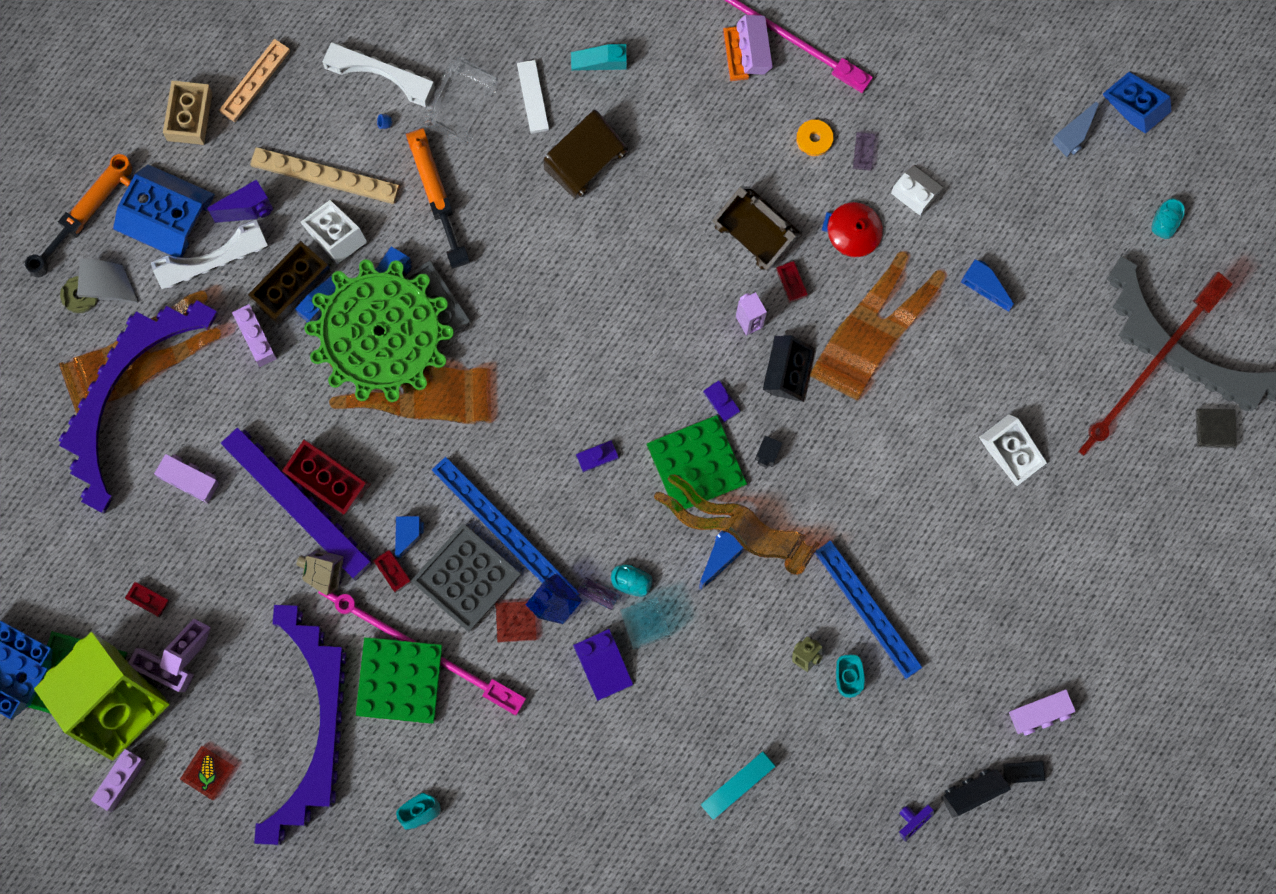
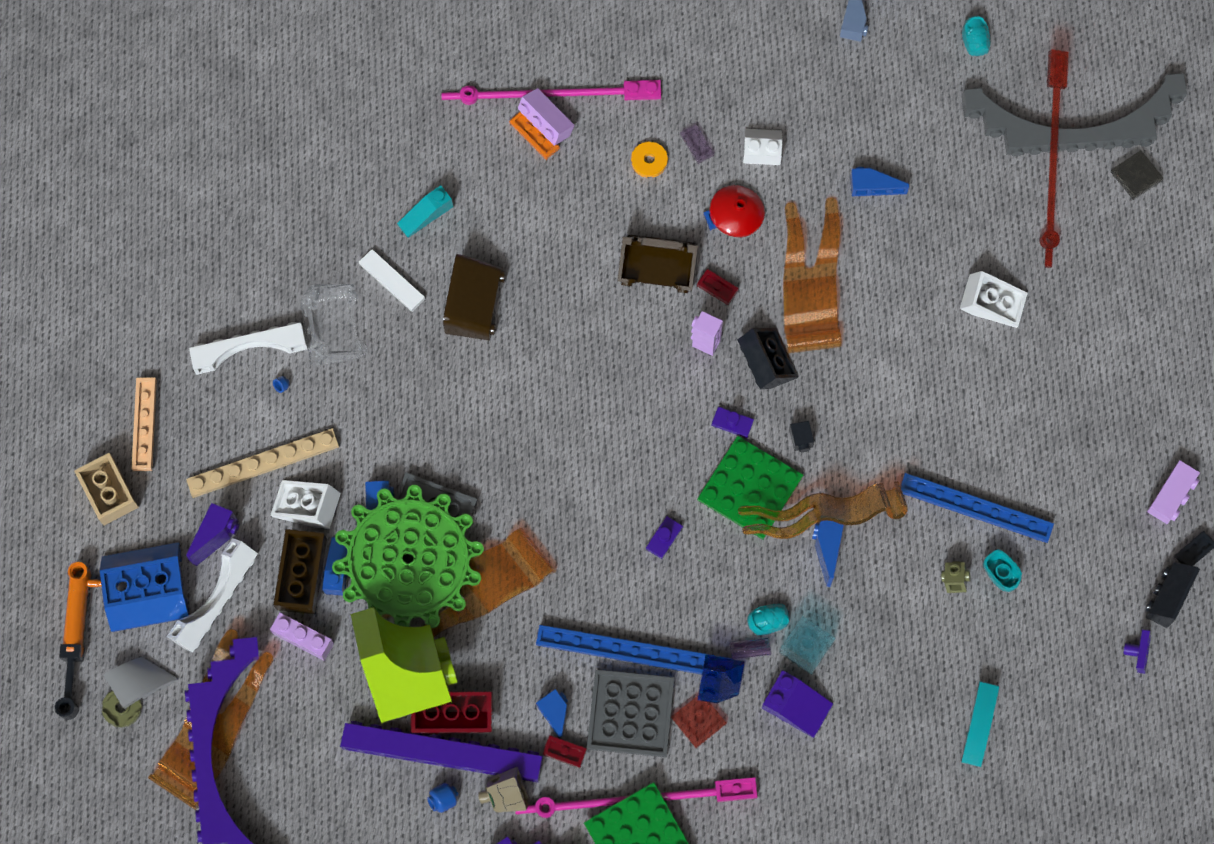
camera: 30 degrees left, 5 degrees down
(187, 477) = (331, 796): lavender brick -> none
(271, 539) = (442, 798): none -> blue head
(307, 411) = (402, 665): none -> lime brick
(435, 193) = (380, 420): orange piece -> none

